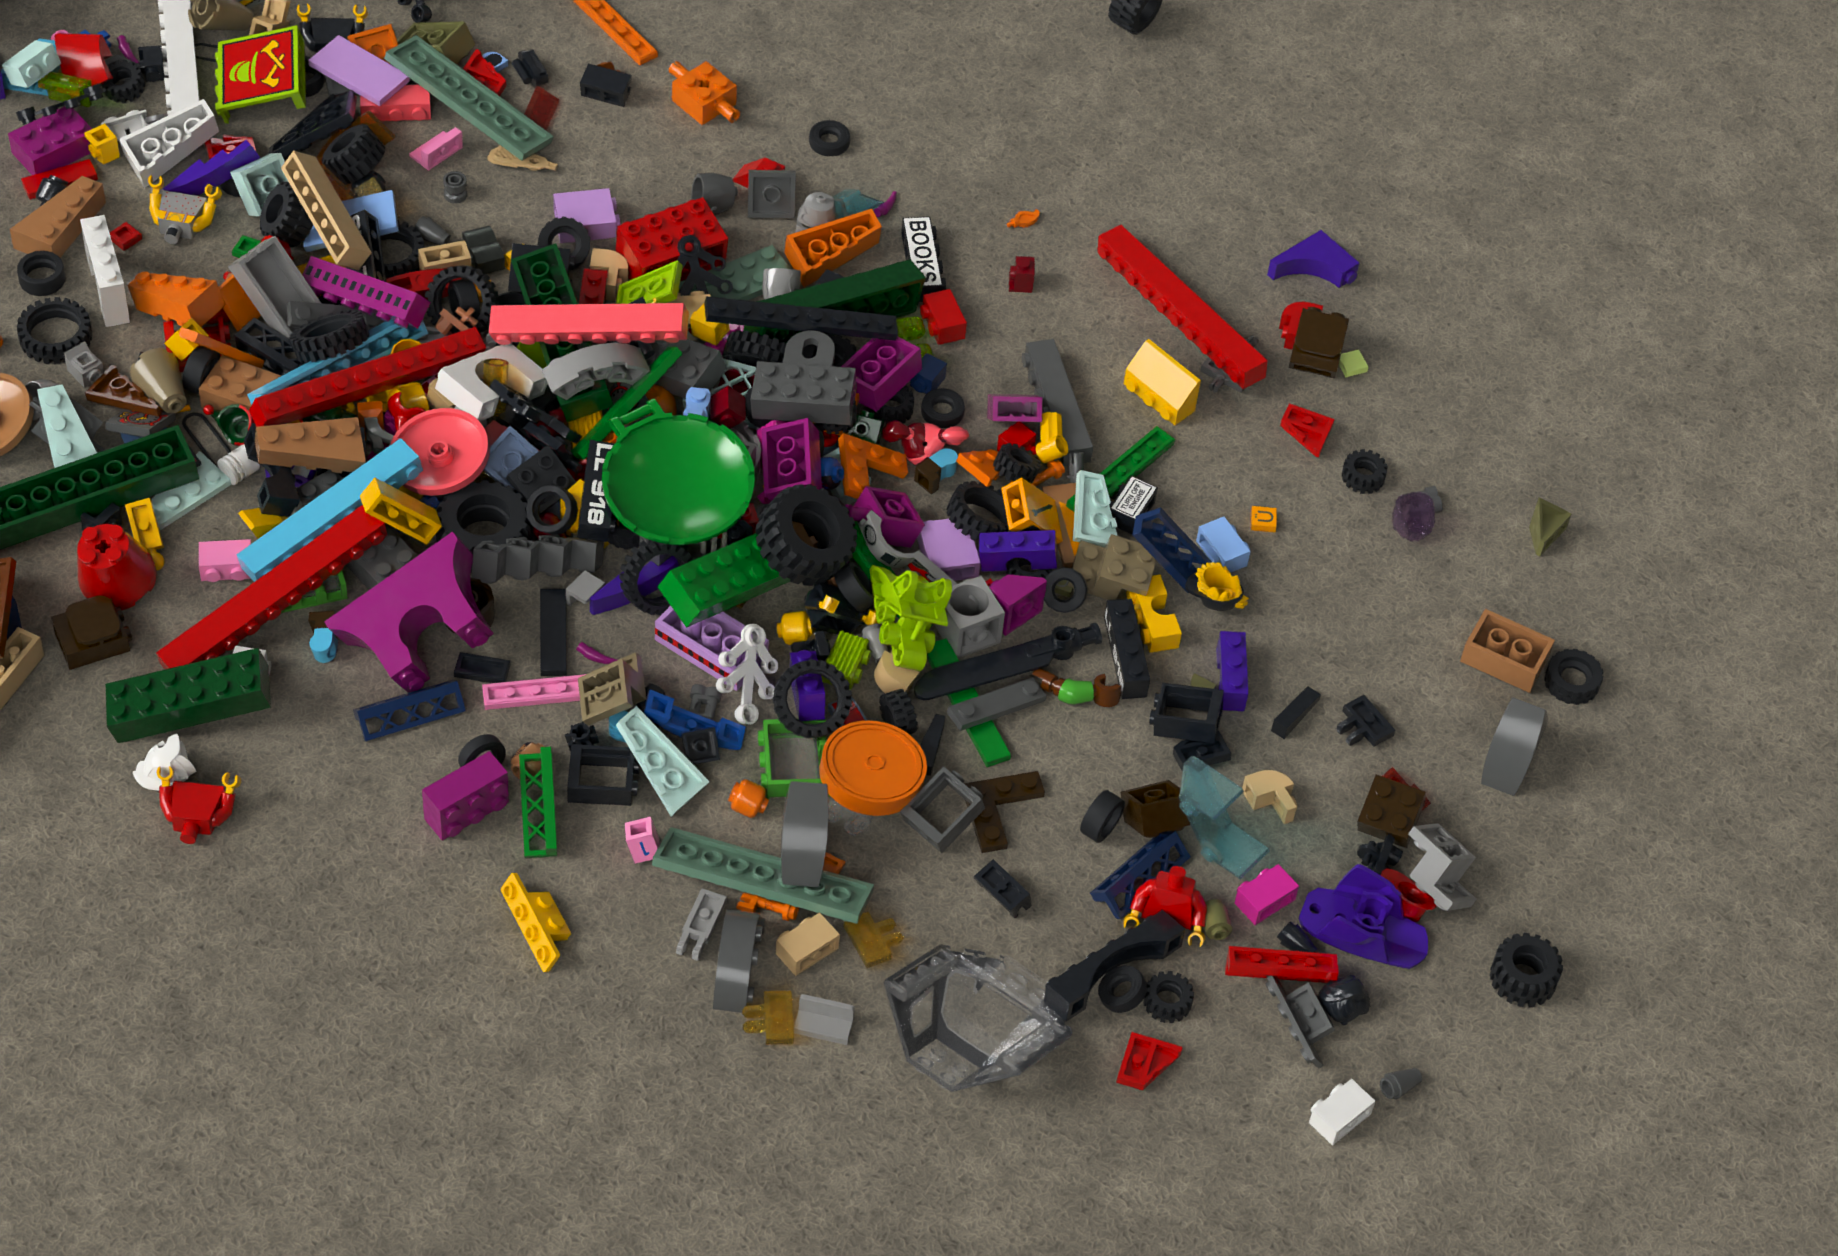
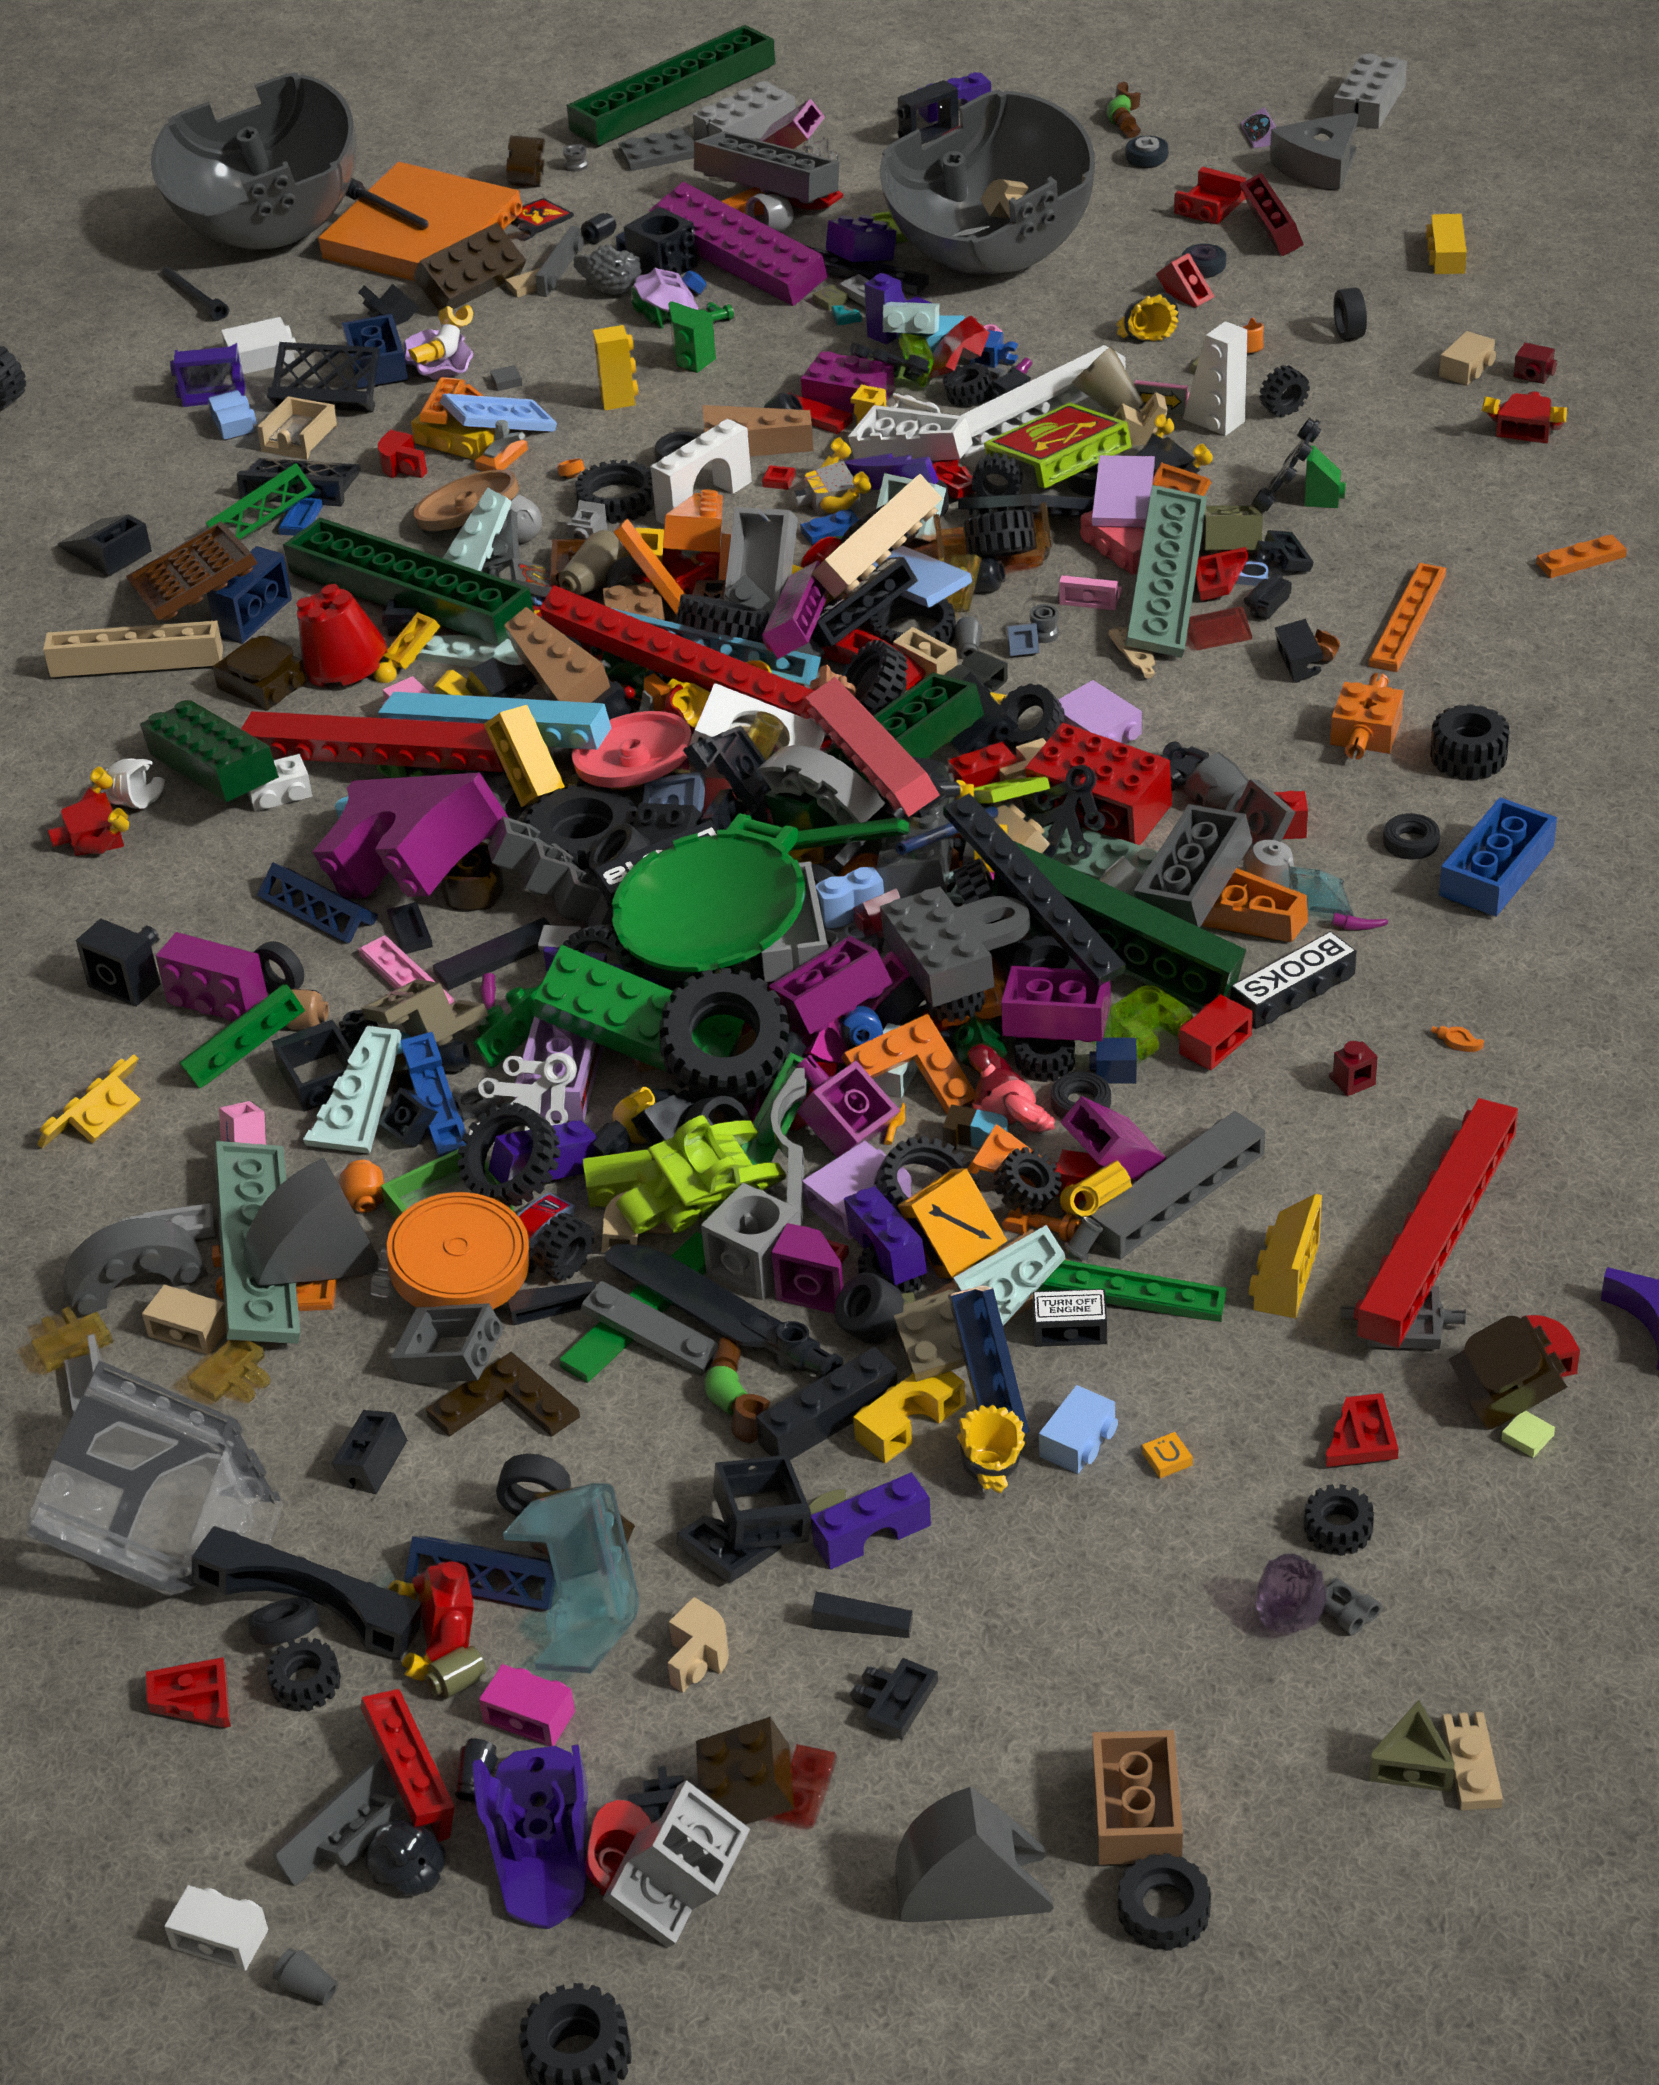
camera: 70 degrees right, 10 degrees down
(220, 238) = (828, 526): none -> blue plate
(269, 124) = (1000, 466): none -> black tyre
(398, 842) = (119, 961): none -> black brick
(461, 206) = (1022, 639): none -> sand blue tile
(490, 35) = (1283, 548): none -> black hinge
(633, 638) = (506, 1025): none -> green bracket
(668, 199) = (1181, 766): none -> black piece
(700, 344) = (933, 835): none -> dark blue piece
(772, 62) = (1469, 741): none -> black tyre
(812, 239) = (1195, 862): none -> dark grey brick
(893, 111) = (1497, 856): none -> blue brick
(1578, 512) = (1474, 1762): none -> tan hinge

